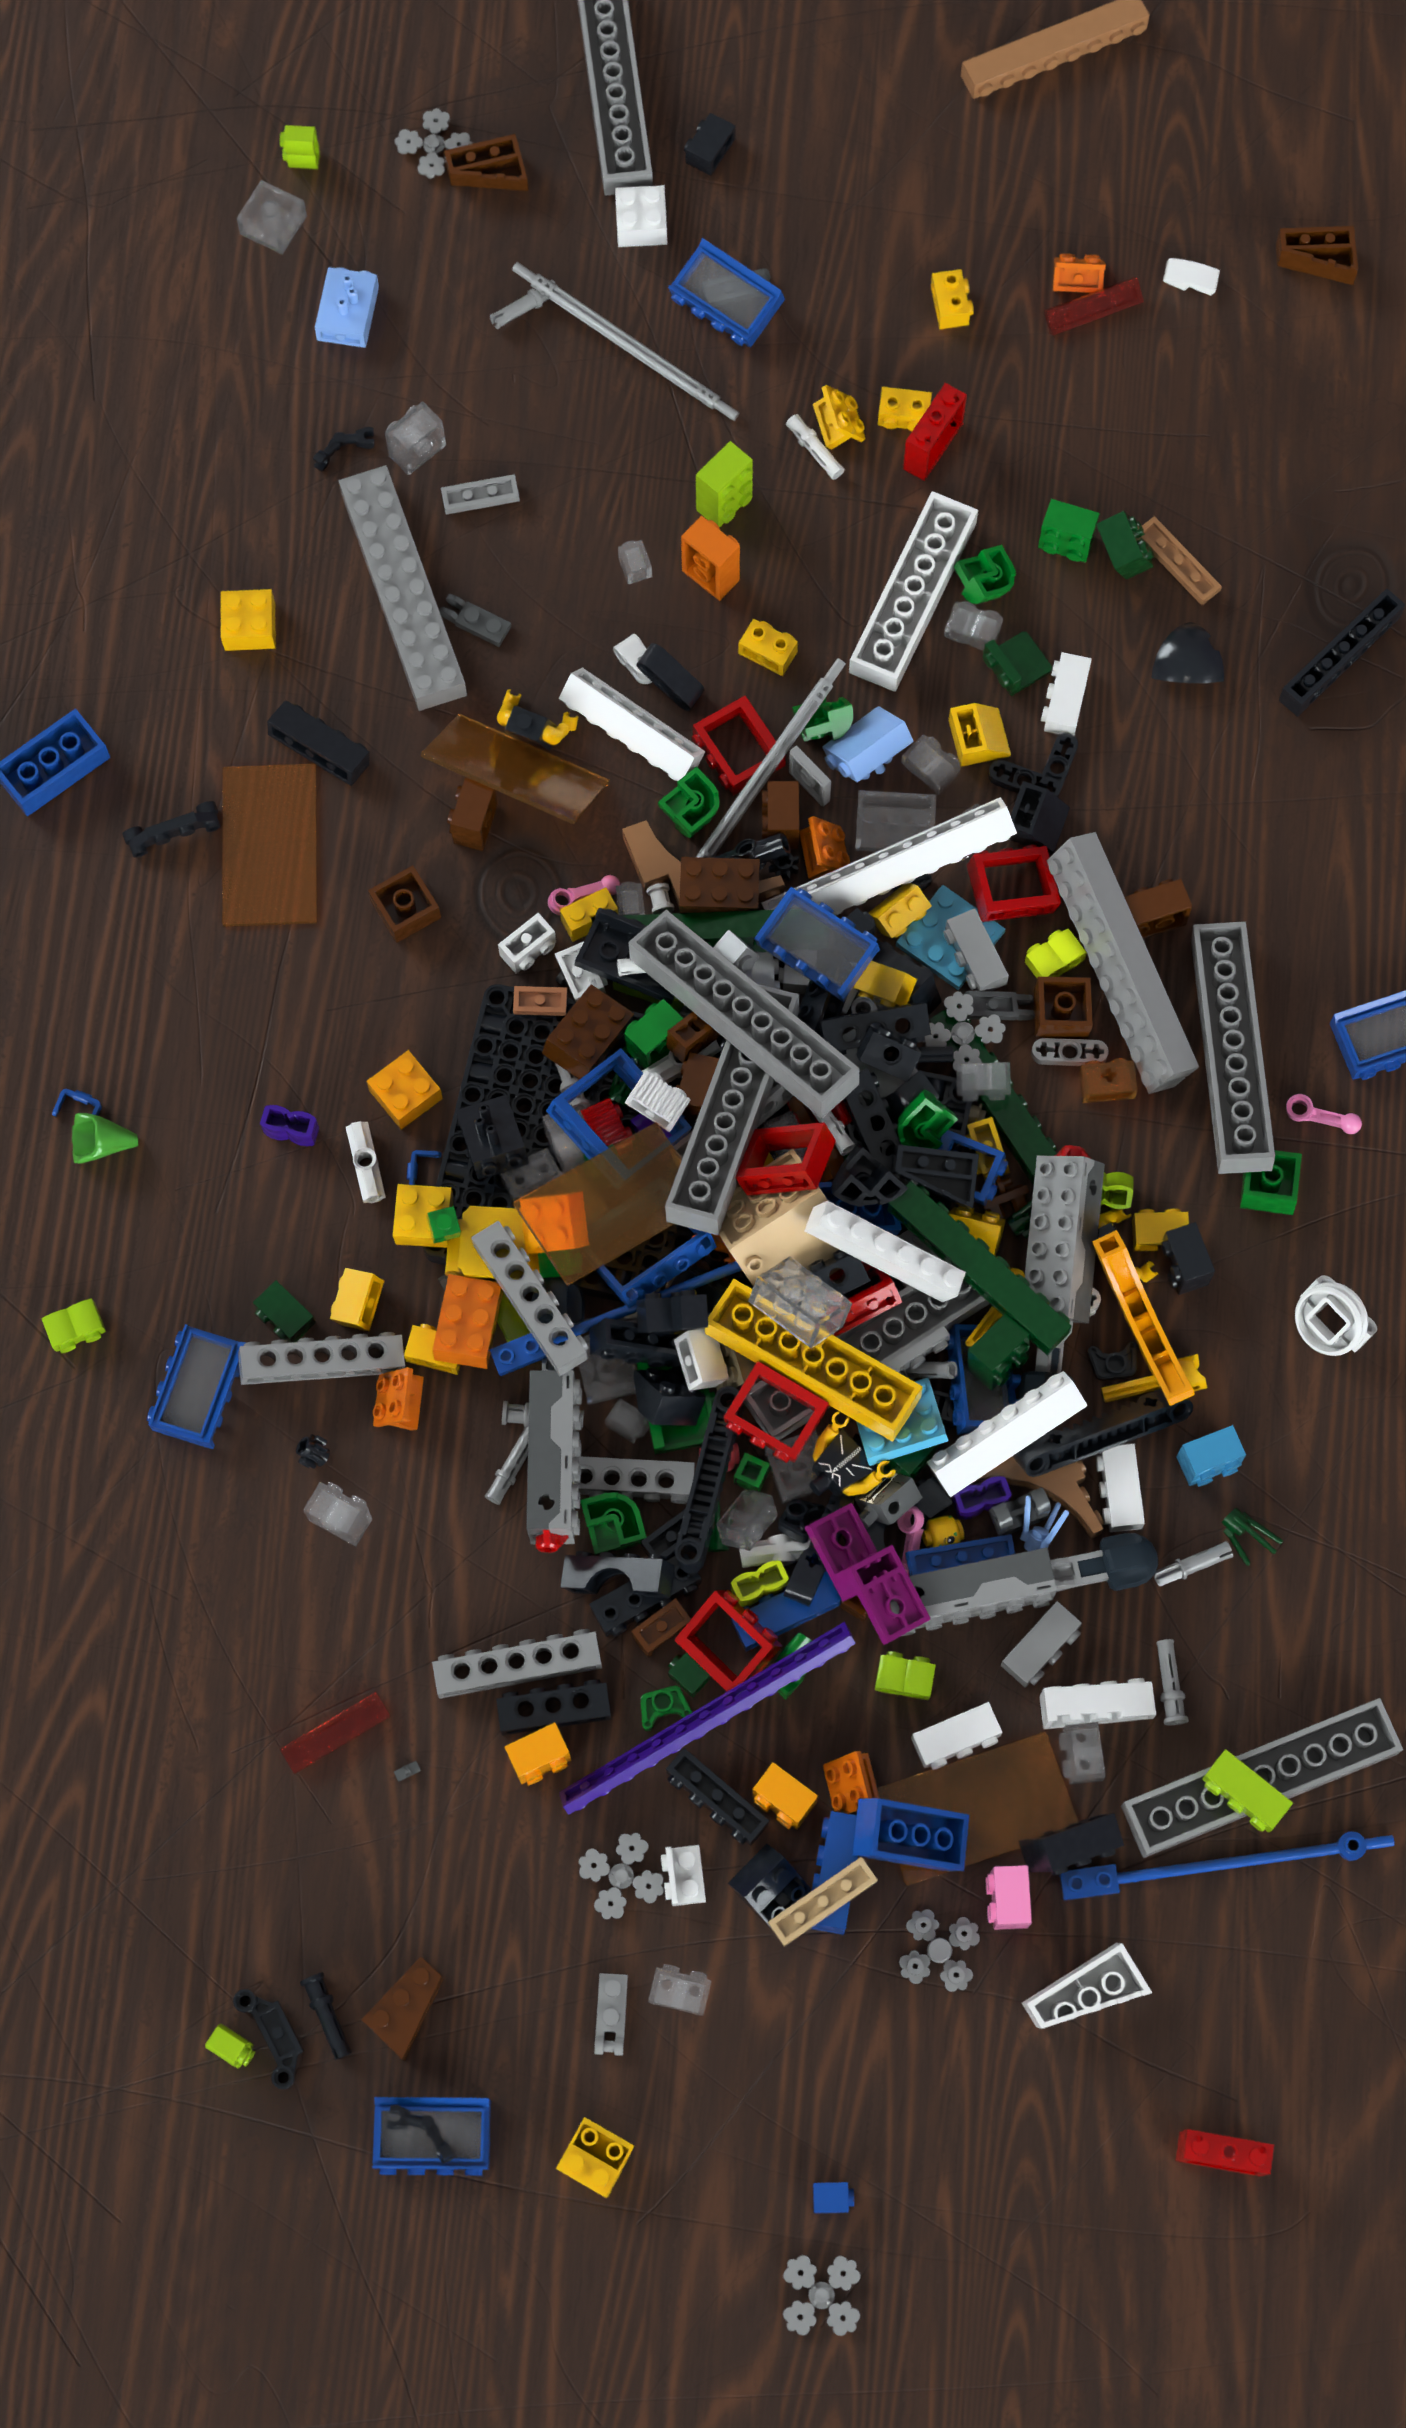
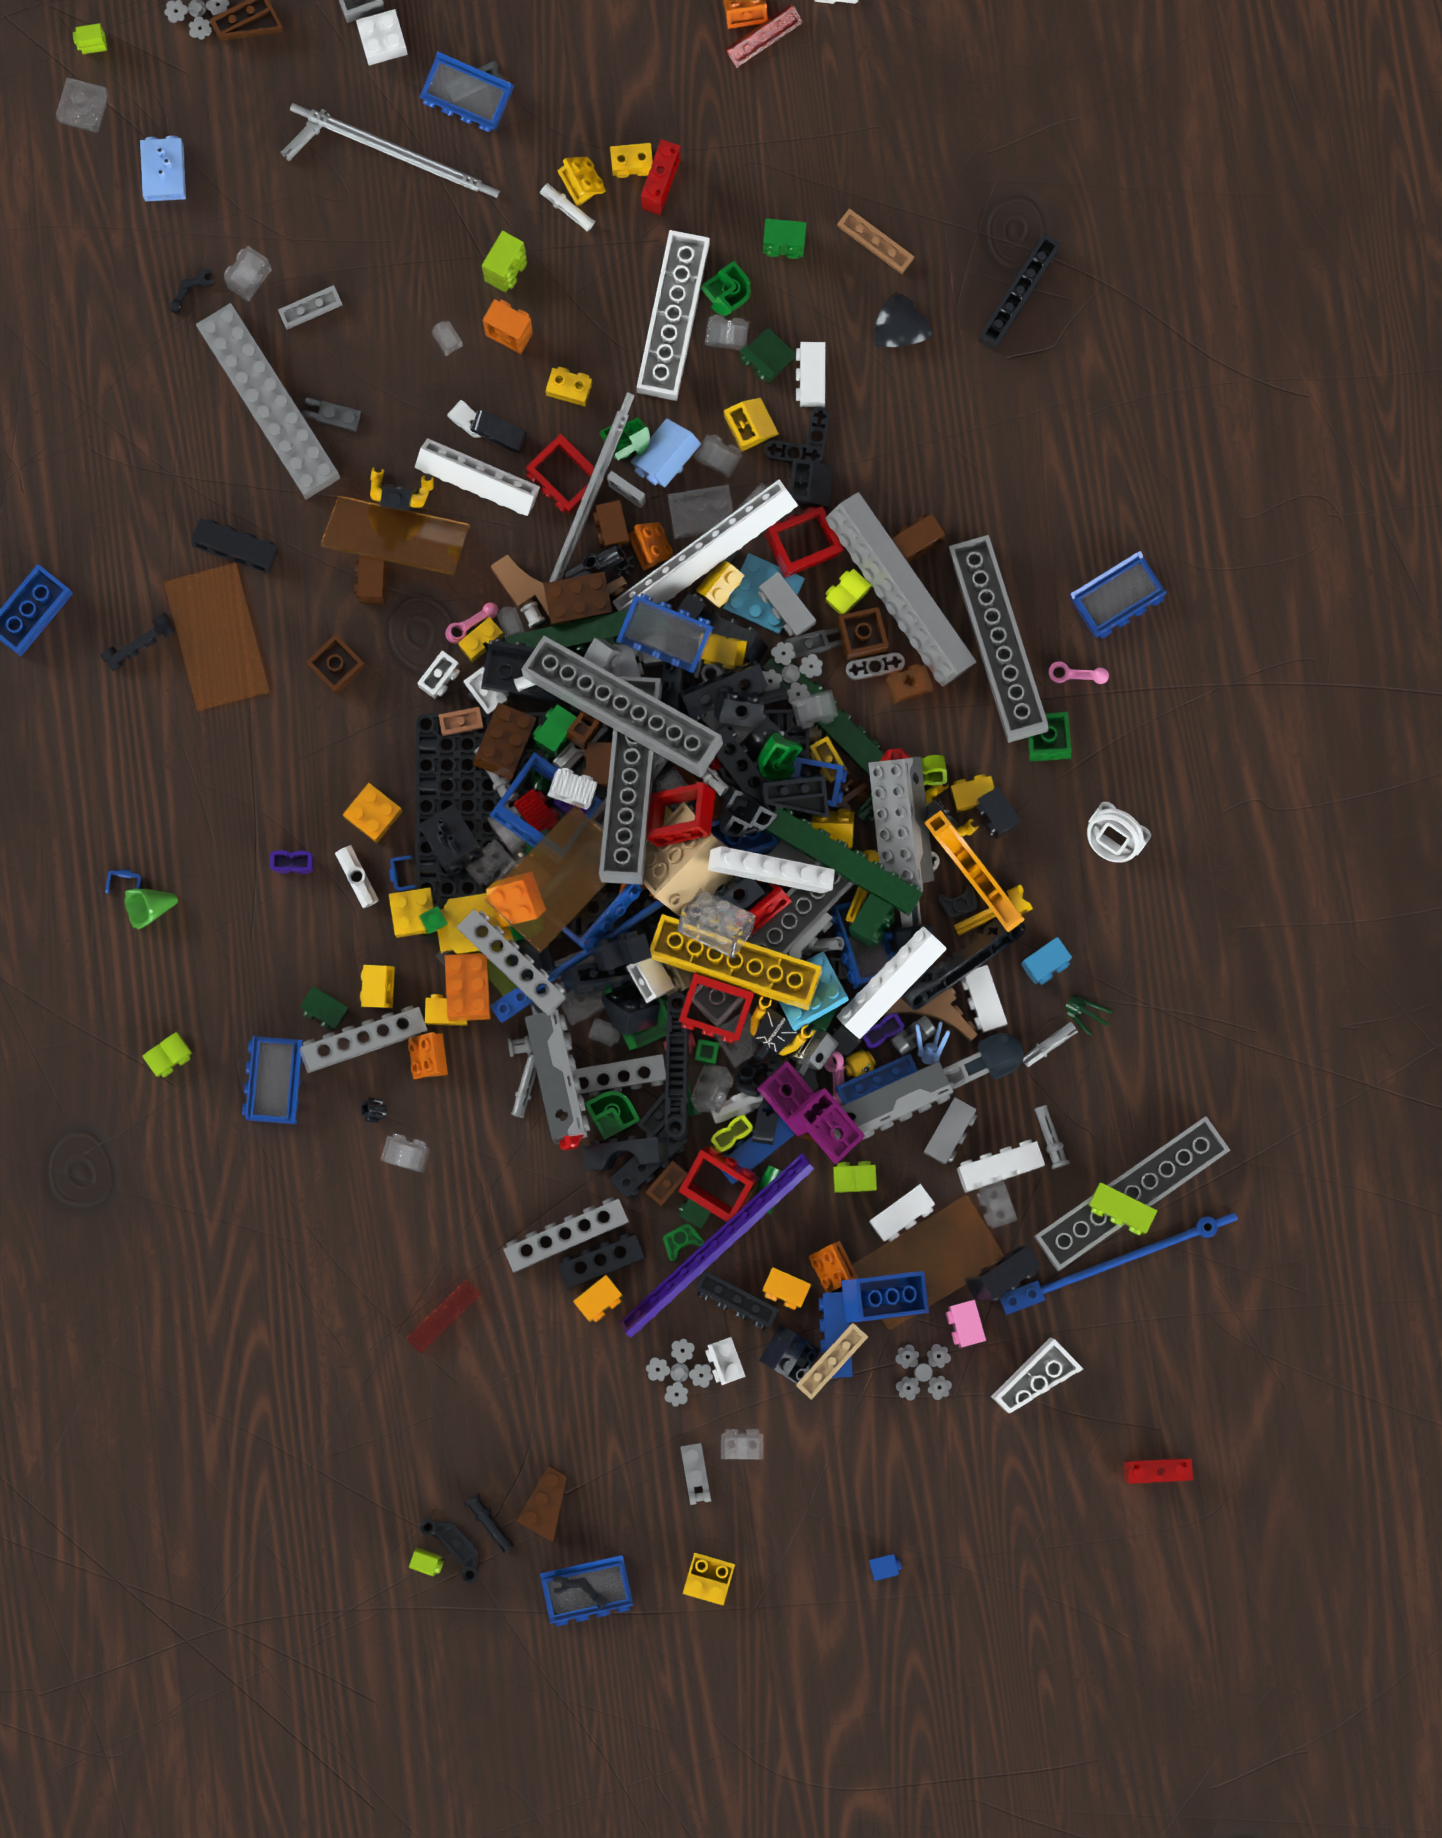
camera: 15 degrees left, 10 degrees up
(248, 620) = (152, 456): yellow brick -> none
(407, 1771) = (503, 1331): dark grey piece -> none
(691, 803) = (539, 531): green brick -> none
(821, 2295) = (892, 1636): light grey plant -> none
(950, 299) = (647, 55): yellow brick -> none
(1125, 544) = (832, 241): dark green brick -> none

